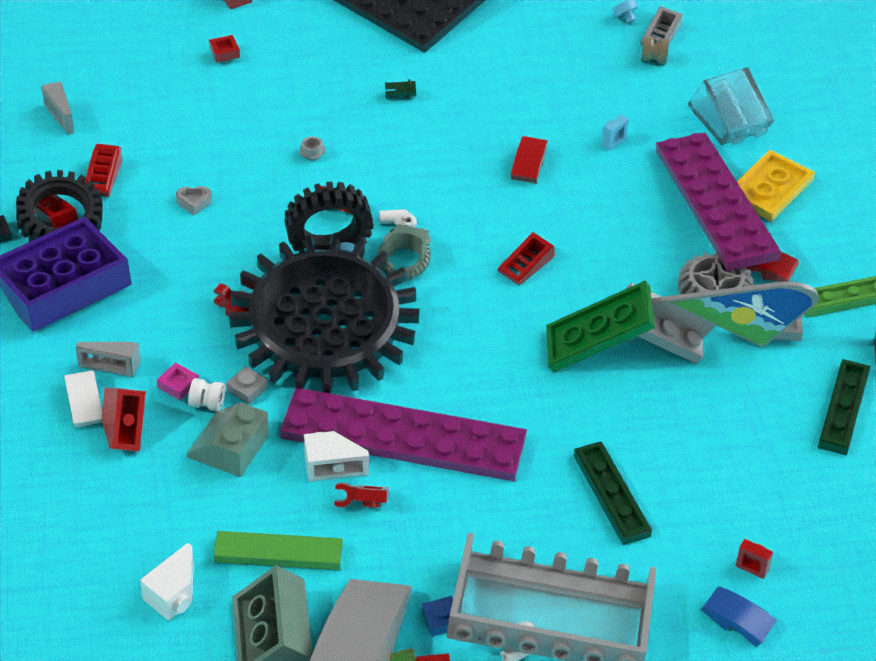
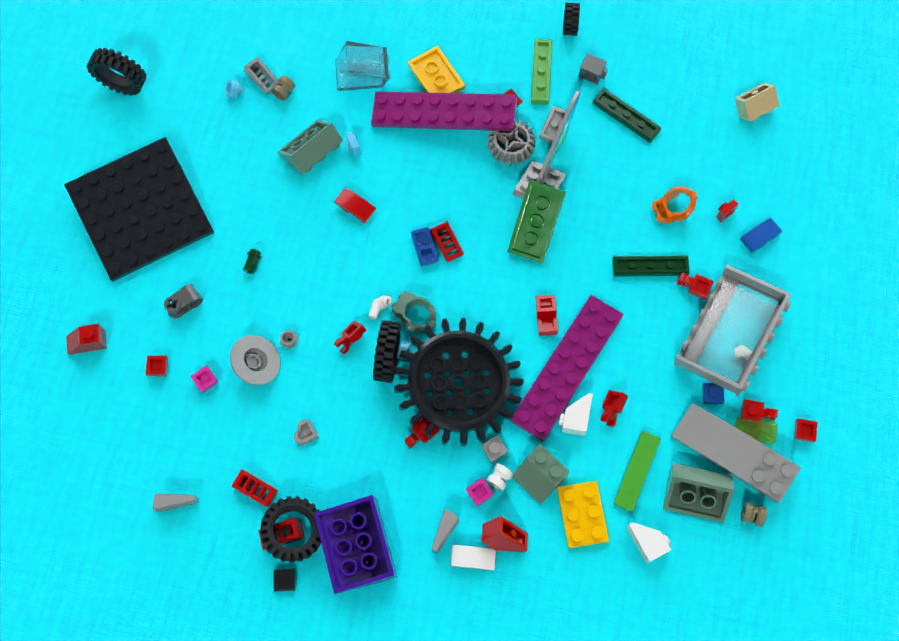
camera: 65 degrees left, 25 degrees up
(188, 503) = (582, 514): none -> yellow plate
(225, 91) = (204, 379): none -> dark pink plate
(267, 120) = (255, 360): none -> light grey hat
(316, 44) = (184, 300): none -> dark grey piece
(474, 391) = (546, 315): none -> slope
(502, 244) = (424, 246): none -> blue slope
(586, 95) = (311, 146): none -> sand green slope
(607, 549) = (698, 285): none -> red plate
(713, 481) = (666, 216): none -> orange piece

